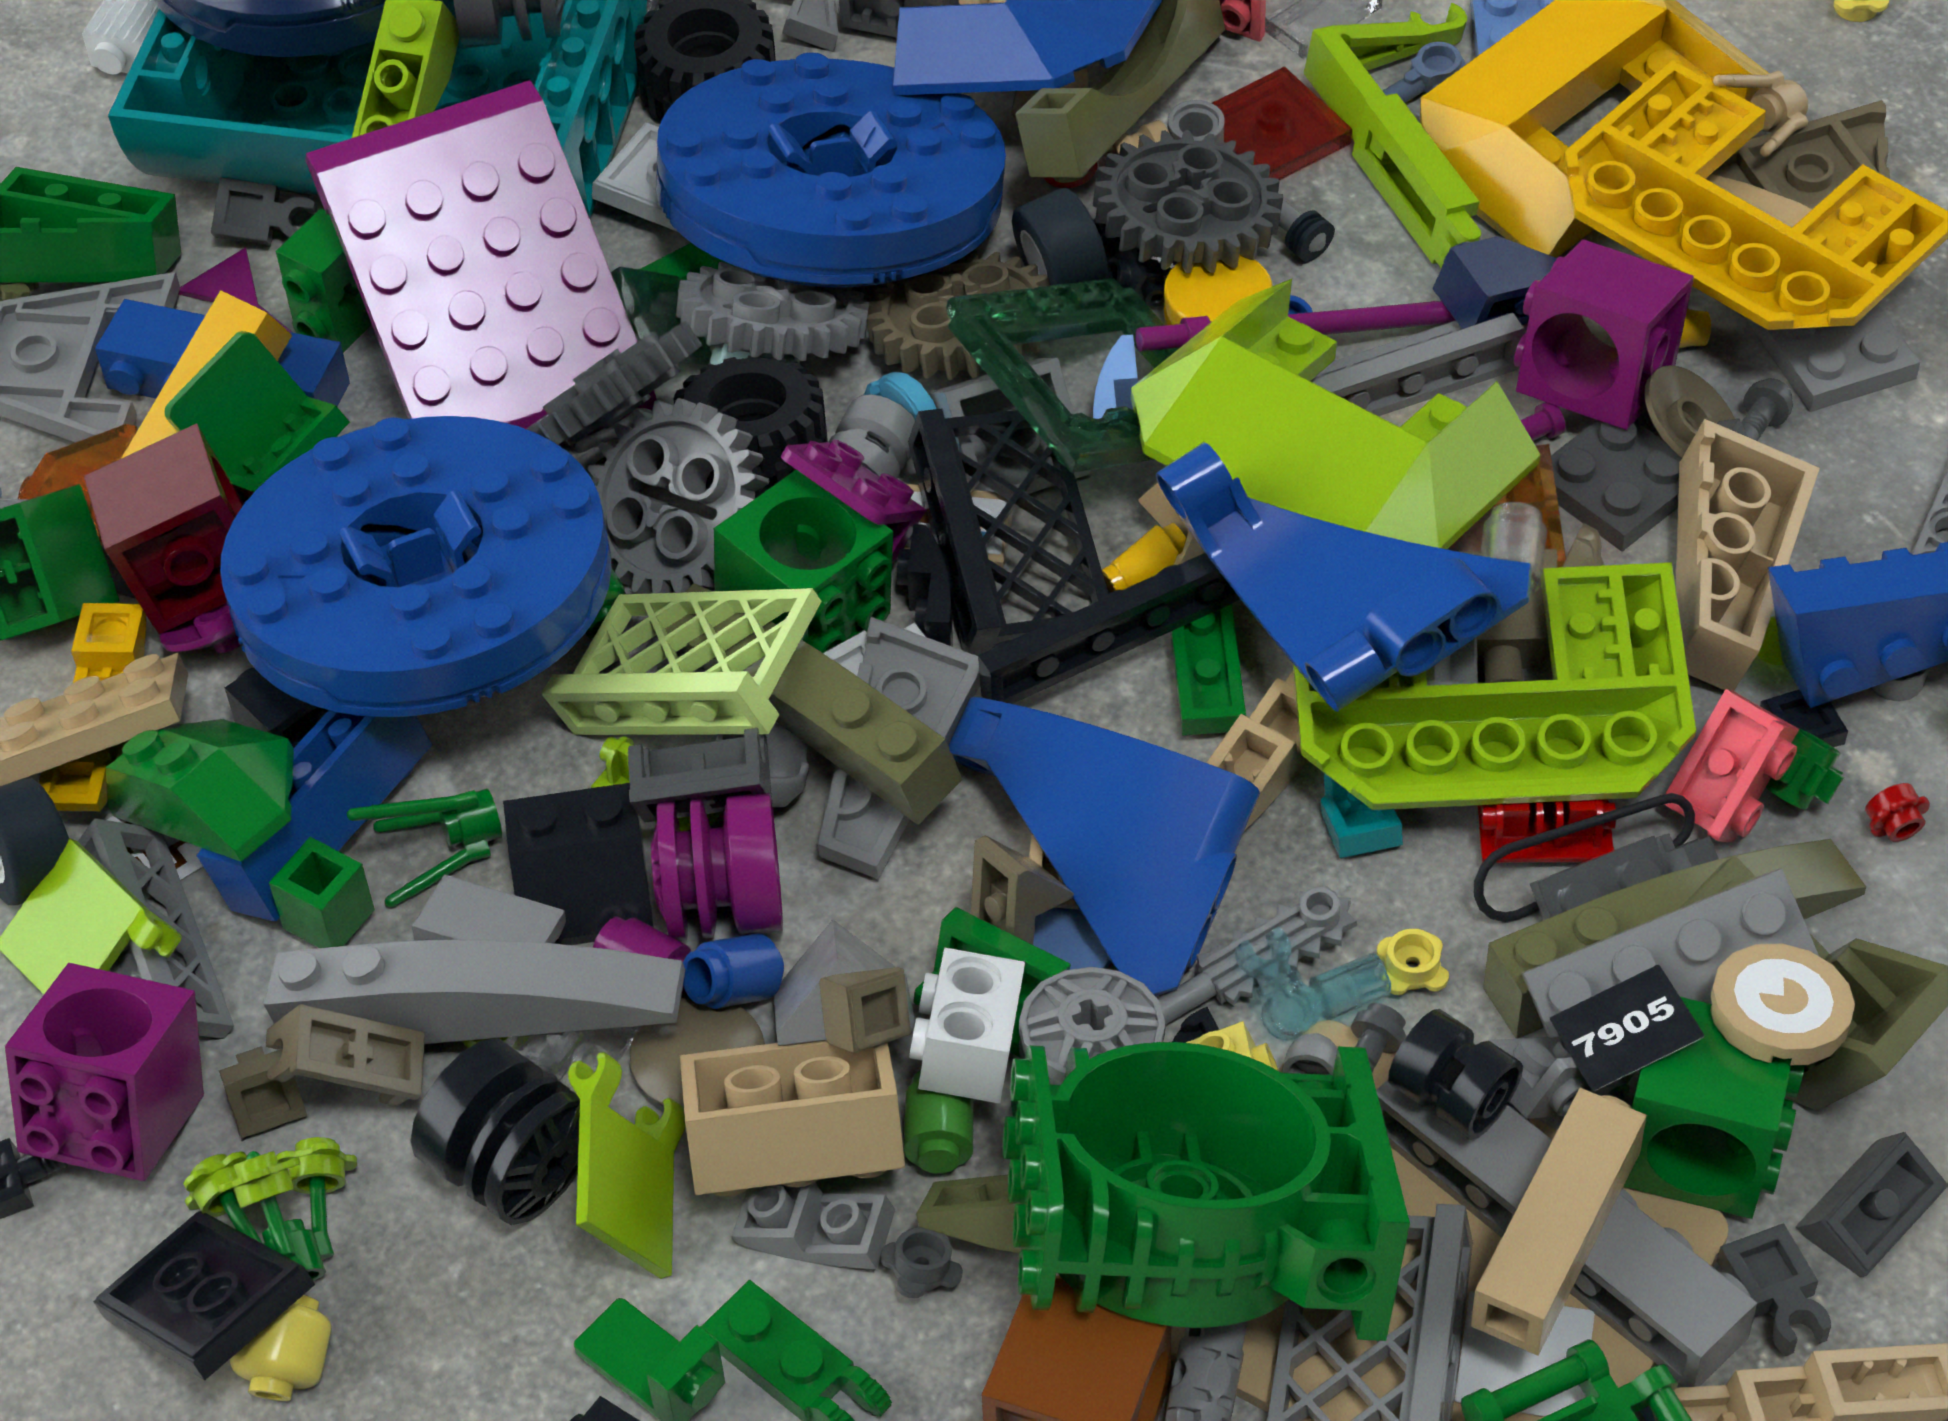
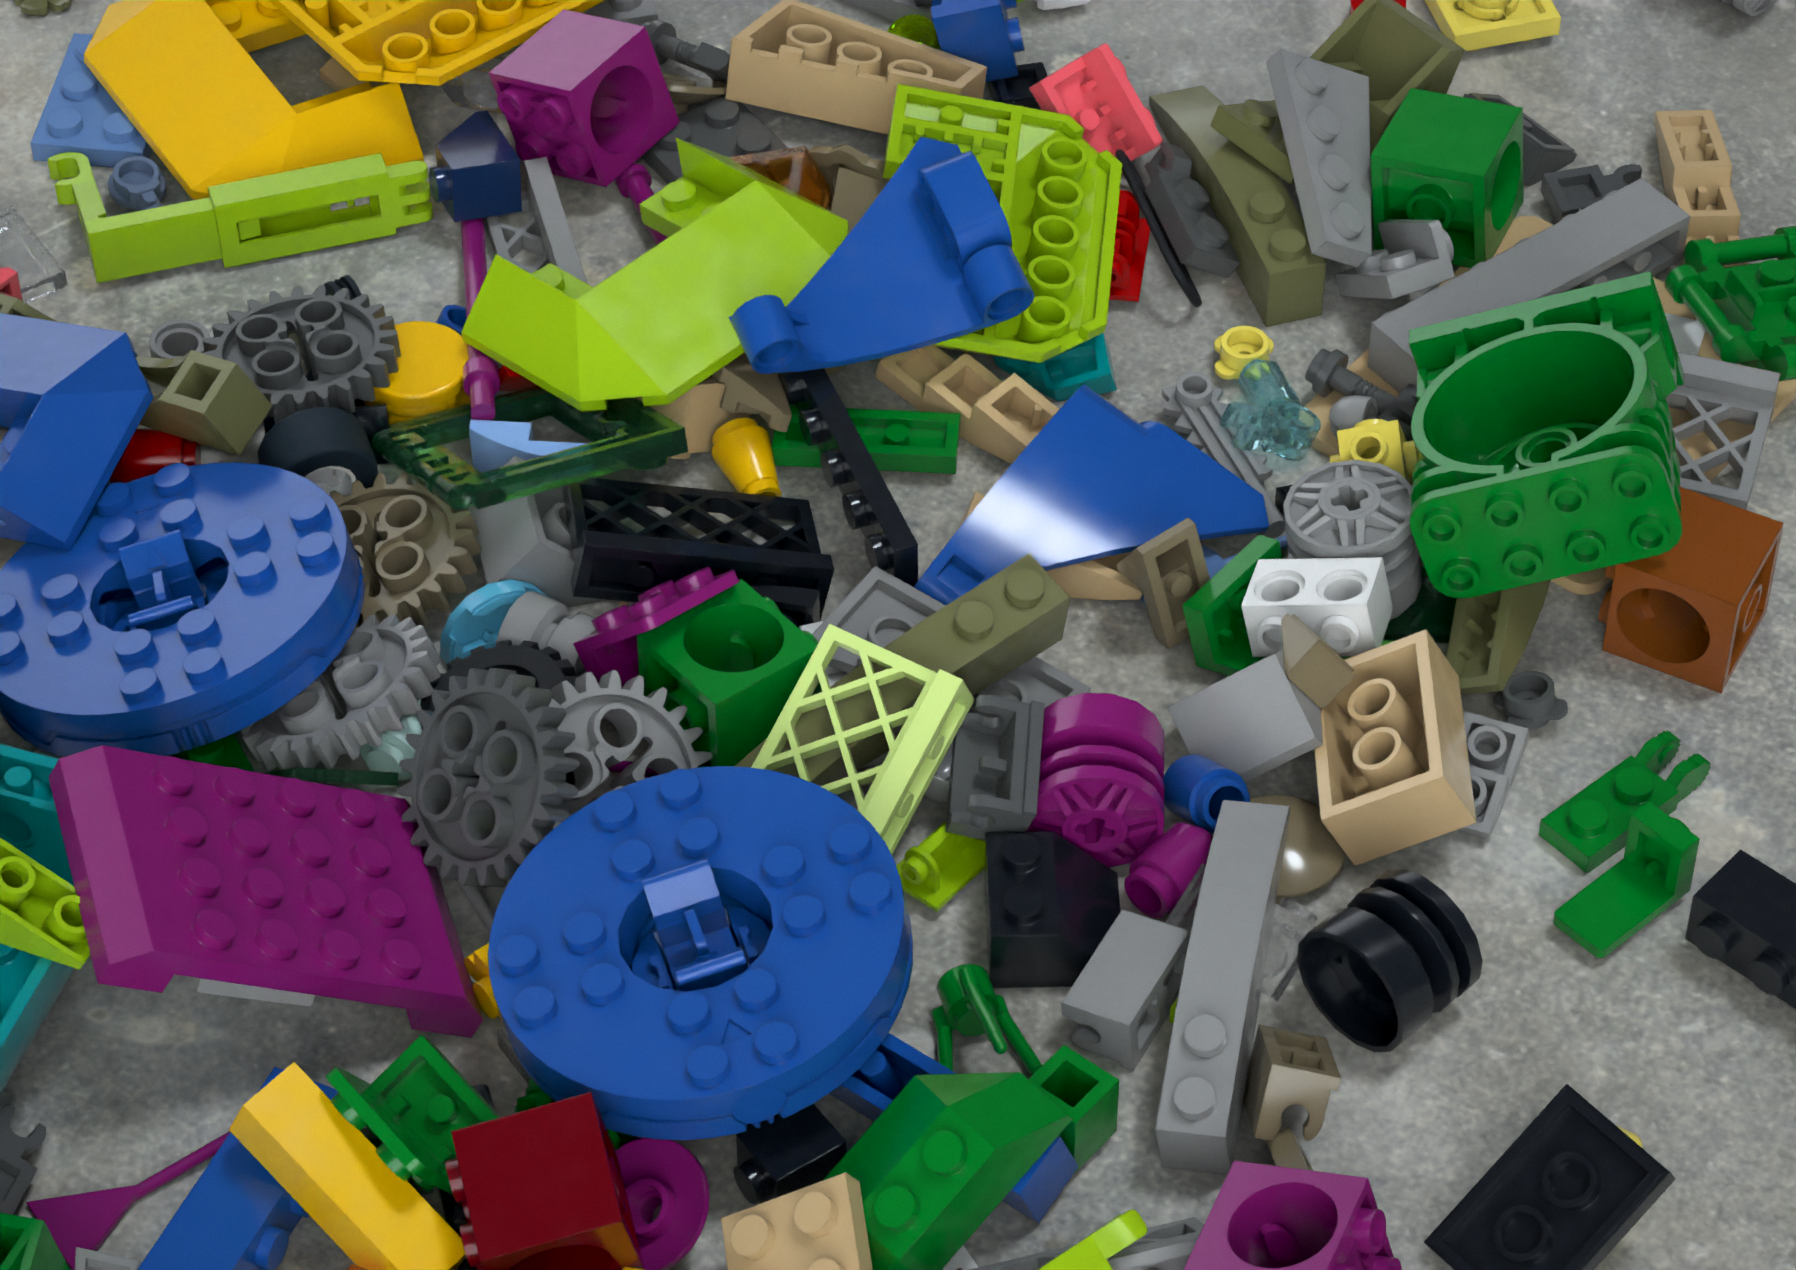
camera: 85 degrees left, 5 degrees down
(239, 1180) = (1444, 1132): lime plant -> none
(321, 284) = (172, 1073): green brick -> none
(625, 1169) = (1449, 873): lime flag -> none
(1282, 123) = (163, 294): clear red plate -> none
(1447, 1068) = (1434, 285): black wheel -> none
(1518, 535) = (851, 176): clear brick -> none
(1558, 1221) = (1564, 244): tan brick -> none
(1626, 1027) = (1403, 179): black sticker -> none
(1781, 1003) = (1398, 85): tan tile -> none
(1897, 812) = (1136, 48): red plate -> none

